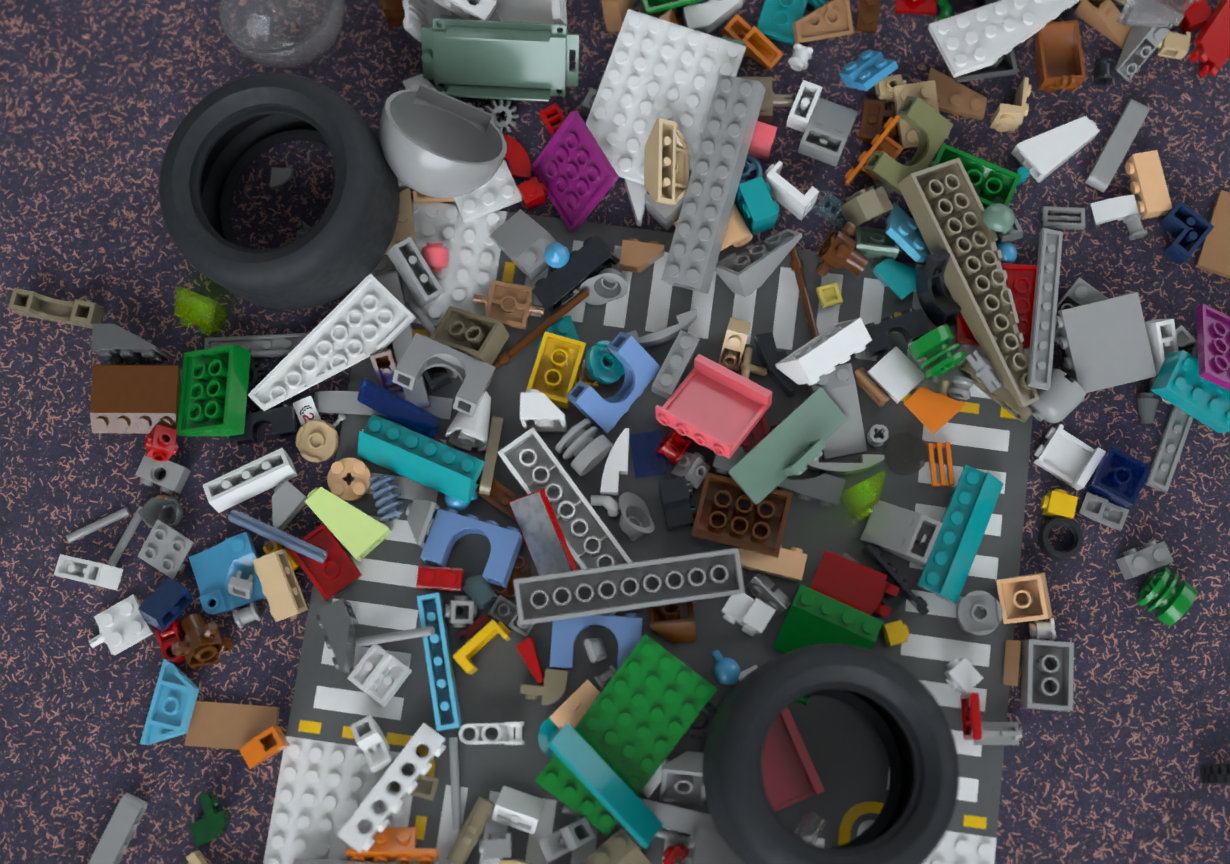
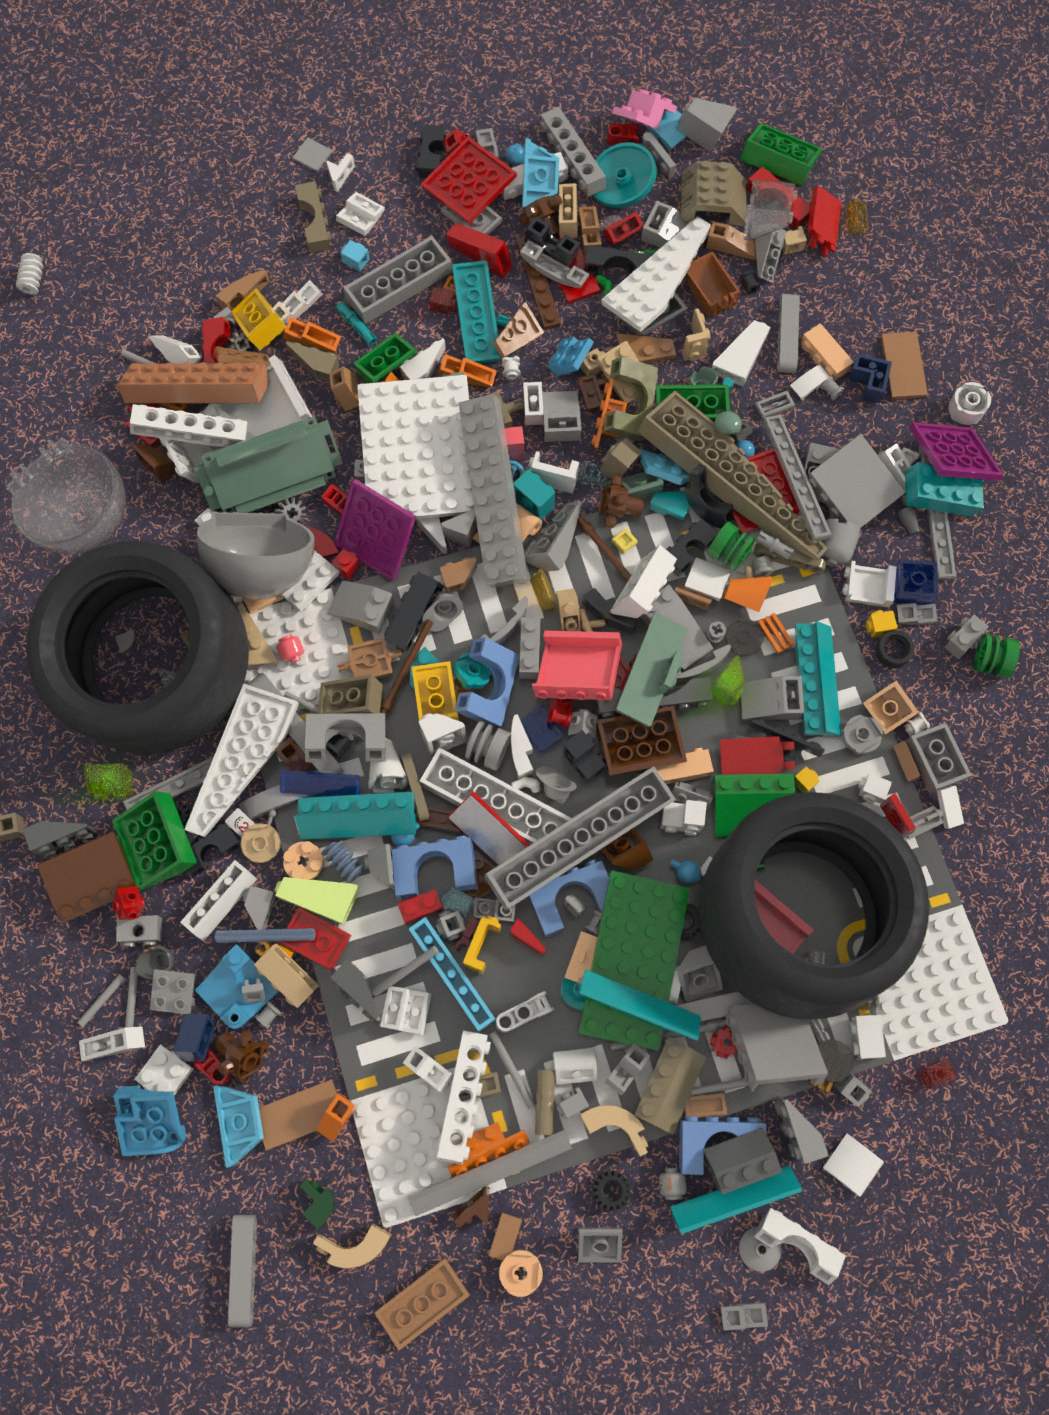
camera: 30 degrees left, 5 degrees down
(85, 664) = (147, 1121): none -> dark azure slope
(415, 272) = (280, 667): light grey brick -> none
(554, 687) = (556, 953): dark tan brick -> none
(556, 255) = (393, 601): dark azure piece -> none
(666, 163) = (447, 490): tan wedge -> none
(718, 311) = (543, 591): none -> clear yellow slope
(1001, 156) = (705, 376): none -> sand green hair
(1034, 731) = (950, 806): none -> white tile

